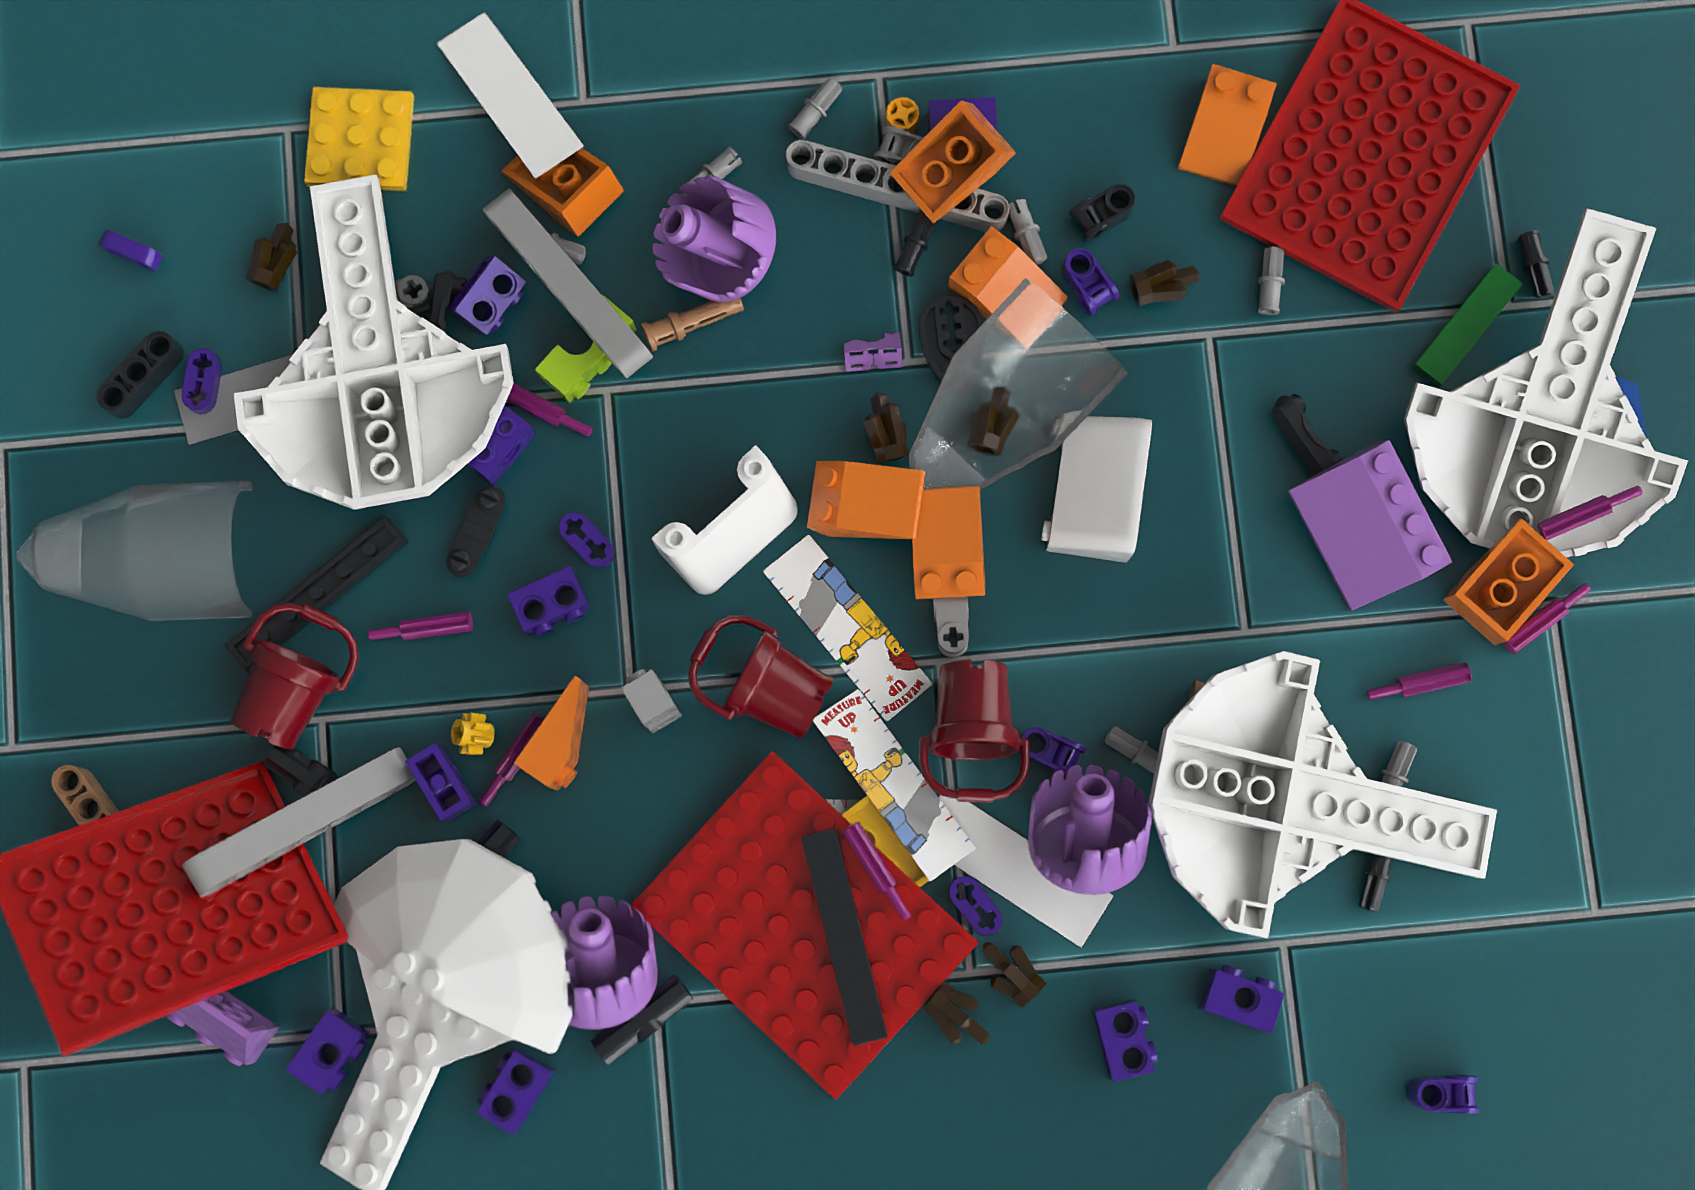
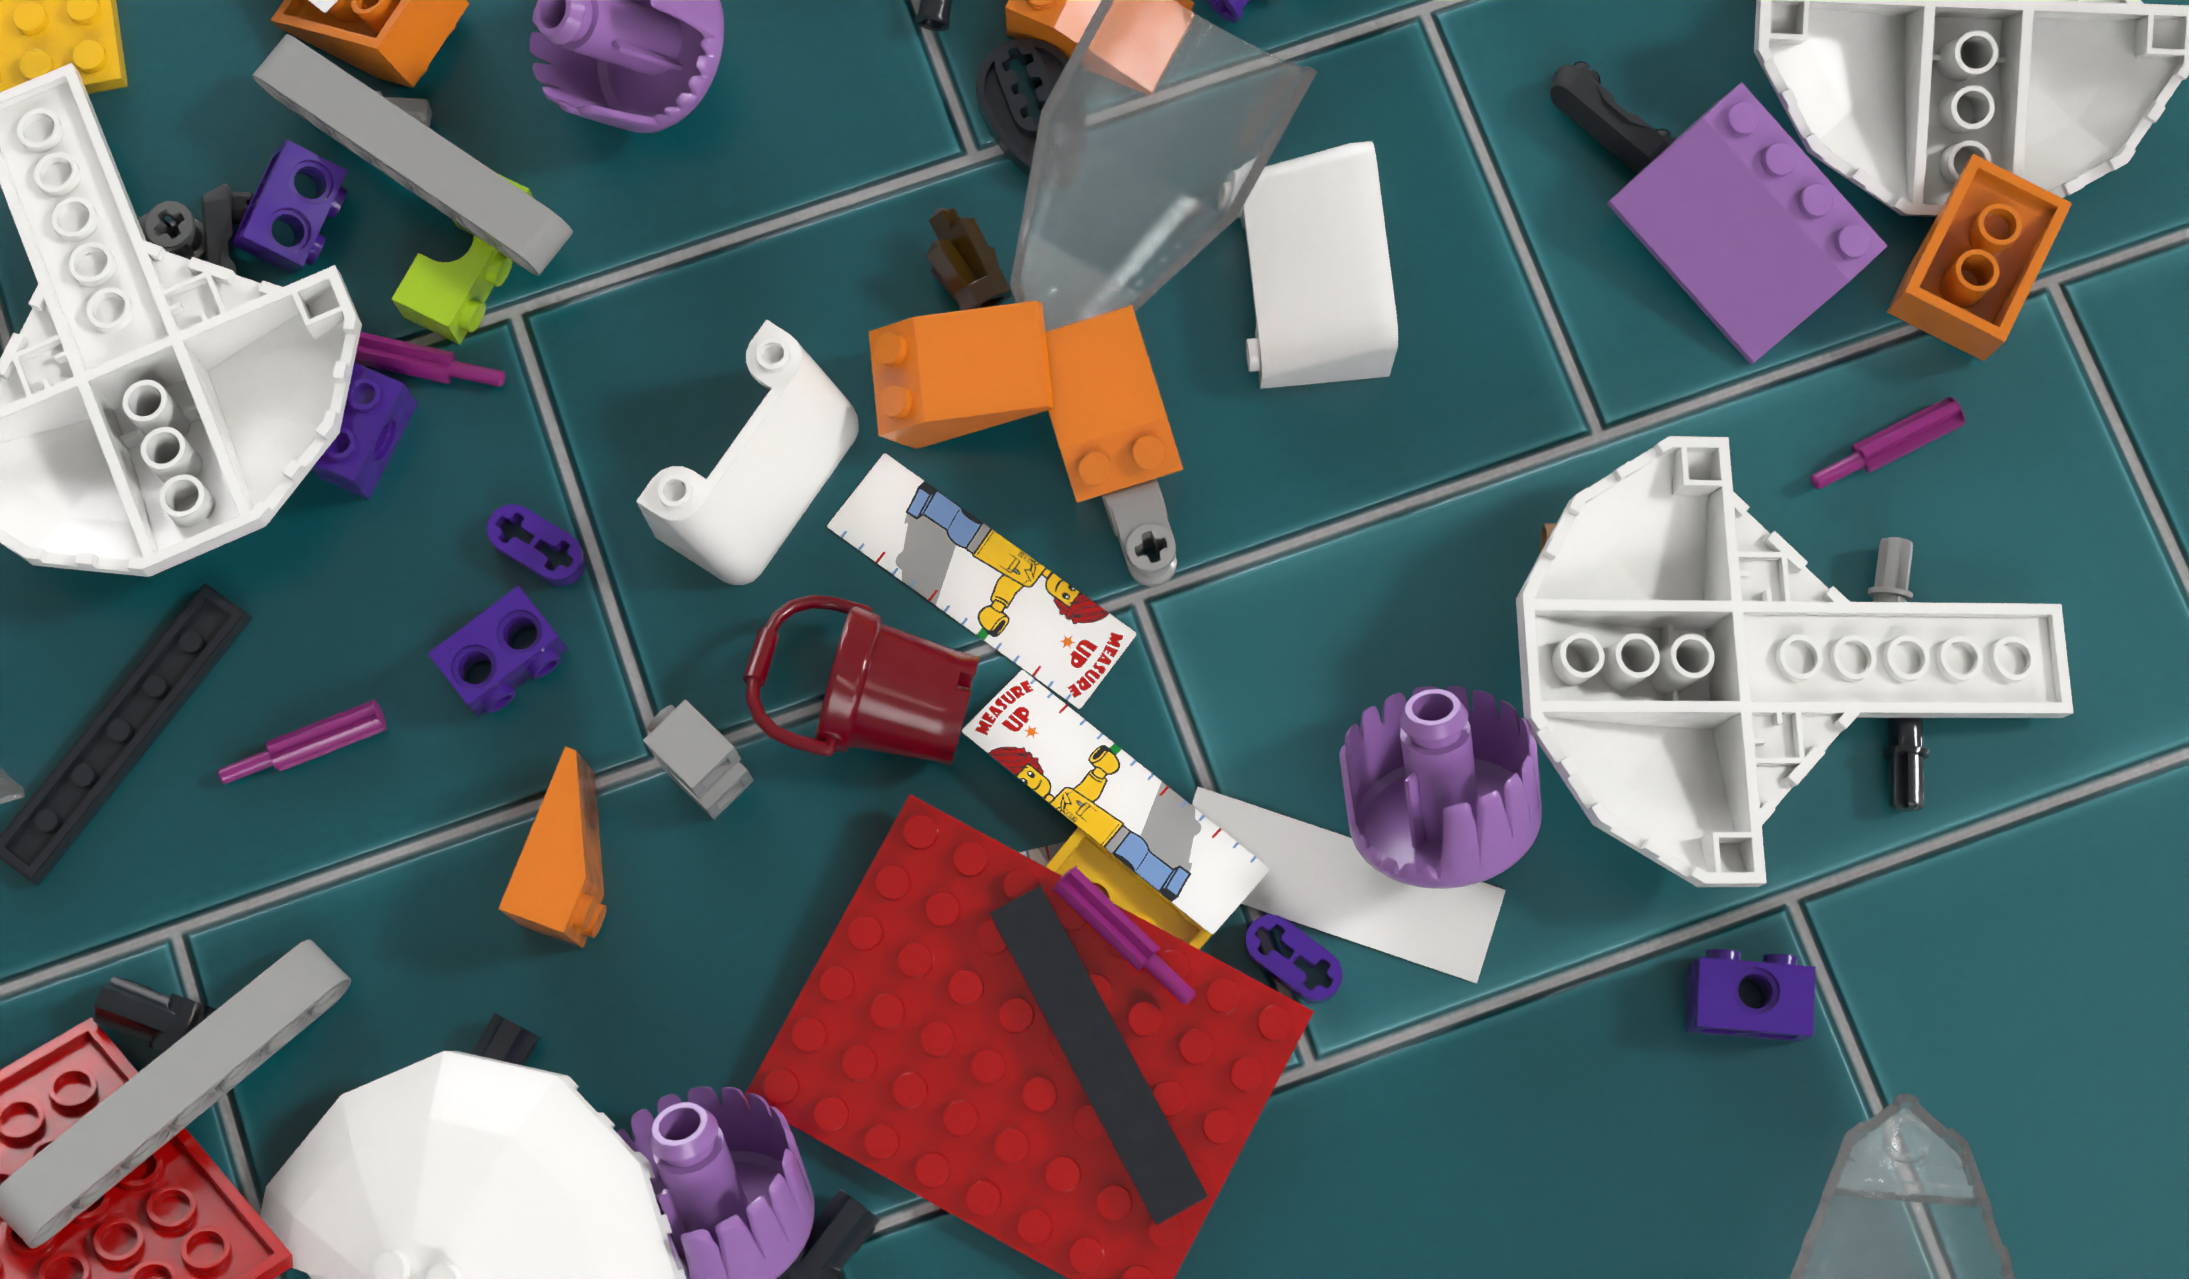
camera: 15 degrees left, 5 degrees down
(285, 685) = (99, 889): dark red piece -> none
(441, 782) = (390, 976): dark purple brick -> none
(472, 733) = (423, 888): yellow gear -> none
(476, 531) = (356, 573): black piece -> none
(506, 768) = (493, 924): magenta axle -> none
(677, 325) = (600, 184): medium nougat pin -> none
(891, 341) = (908, 165): medium lavender piece -> none
(944, 1008) = (1289, 1130): dark brown rock -> none
(973, 725) = (1218, 674): dark red piece -> none
(992, 423) = (1128, 212): dark brown rock -> none
(1023, 980) = (1394, 1051): dark brown rock -> none
(1054, 750) = (1352, 685): dark purple piece -> none
(1115, 1043) = (1569, 1116): dark purple brick -> none
(1132, 748) = (1476, 653): light grey axle -> none
(1450, 1094) = (2113, 1062): dark purple piece -> none
(1544, 619) = (2047, 306): magenta axle -> none
(1584, 513) = (2066, 122): magenta axle -> none

